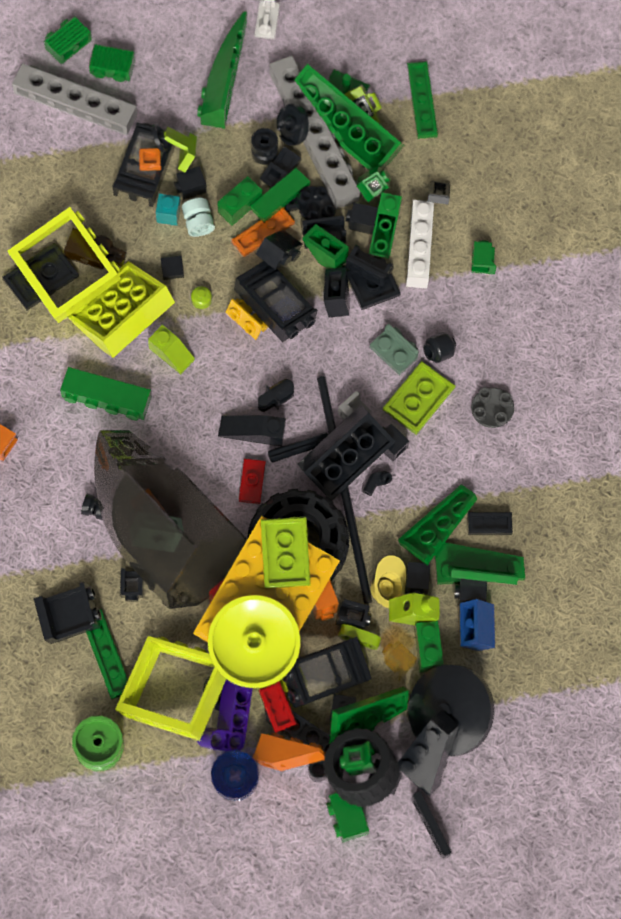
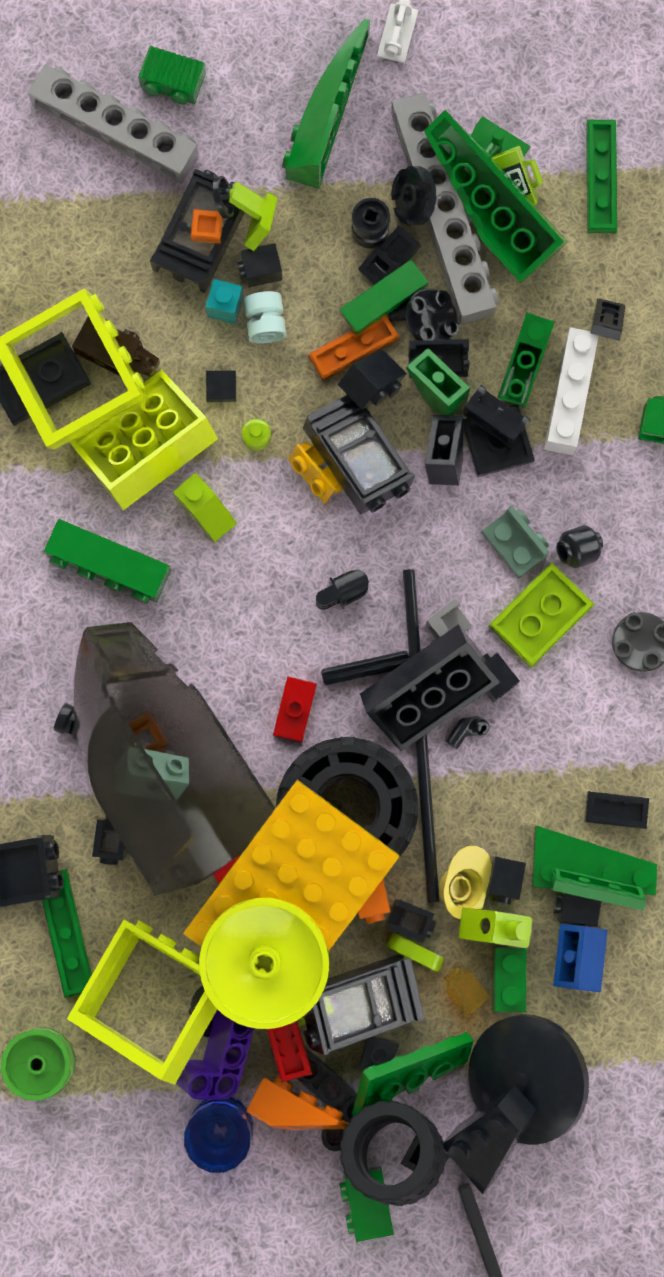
camera: 10 degrees right, 10 degrees up
(67, 39) = (113, 34): green brick -> none
(238, 200) = (325, 299): green brick -> none
(253, 428) = (304, 635): black slope -> none
(285, 552) = (323, 839): lime tile -> none
(358, 759) = (389, 1145): green window -> none
(362, 218) = (494, 344): black brick -> none
(373, 182) = (517, 294): green window -> none
(435, 528) = (539, 809): green wing -> none

